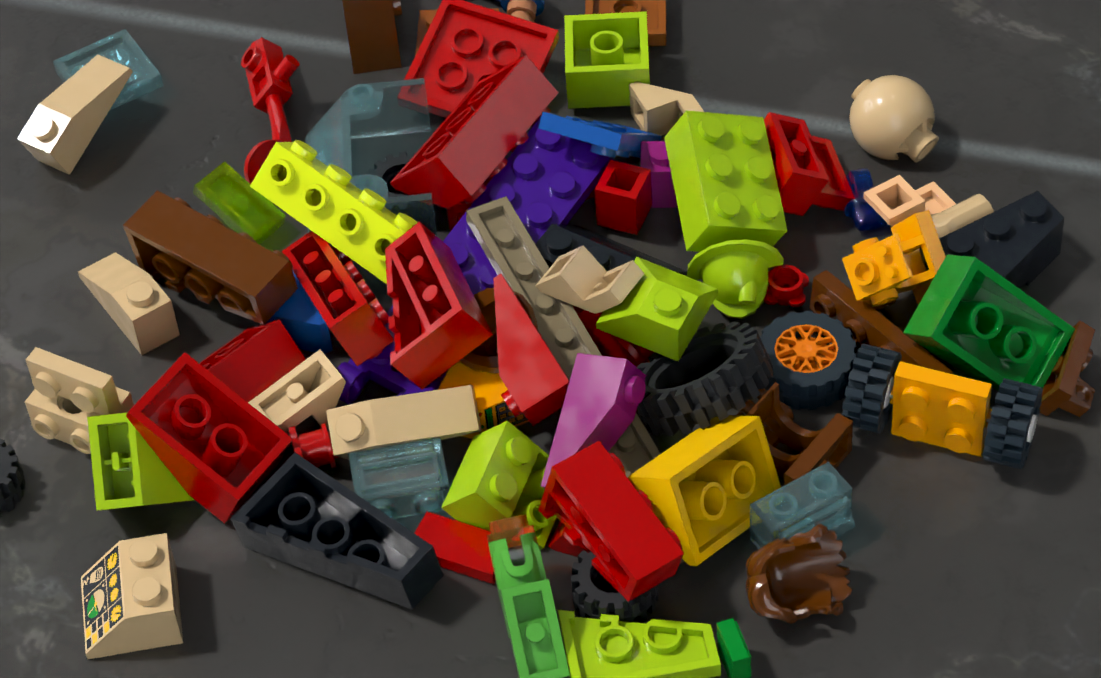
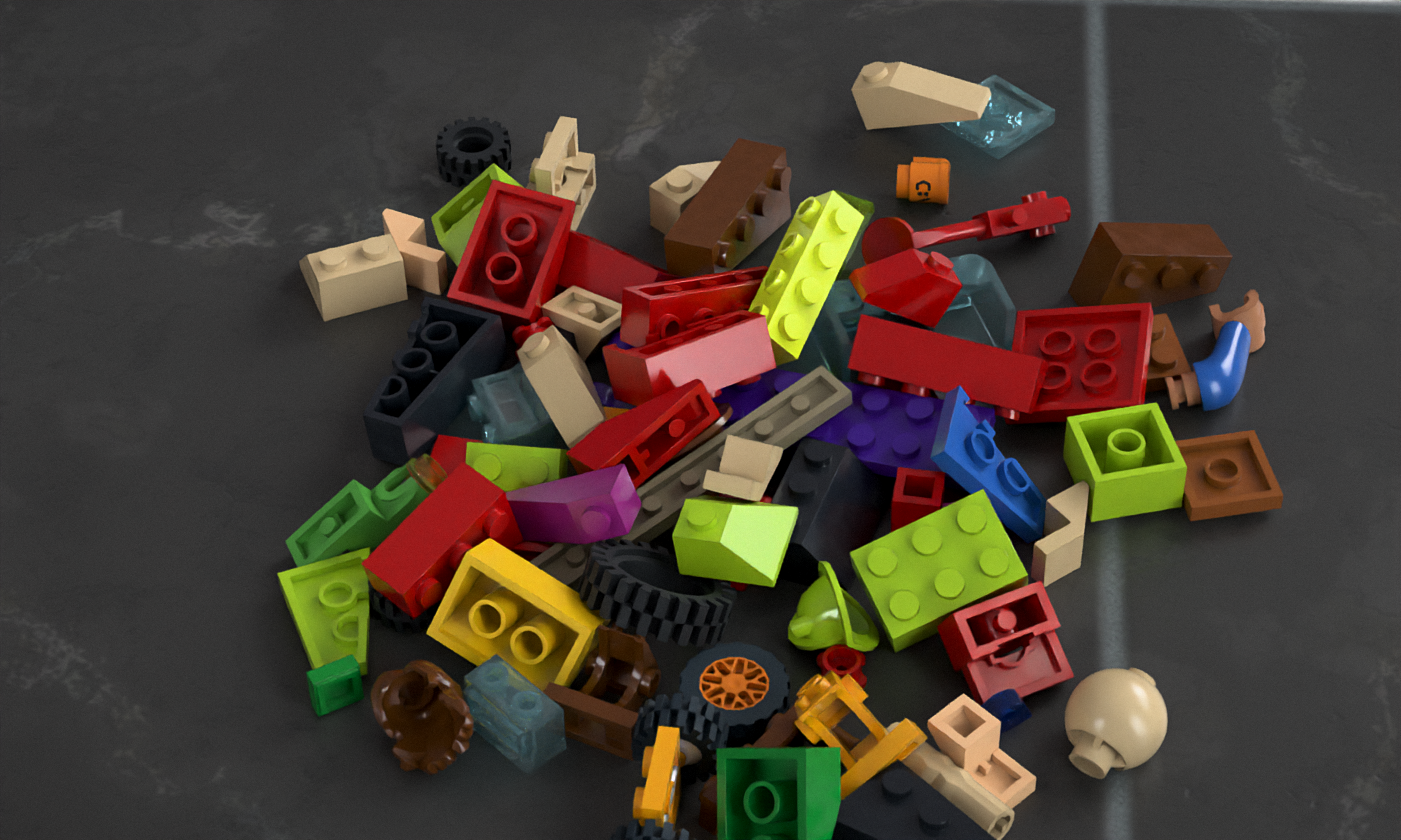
camera: 75 degrees right, 5 degrees down
(103, 535) = (423, 265): none -> light nougat slope
(180, 135) = (924, 180): none -> orange piece
(371, 138) = (909, 285): none -> red slope

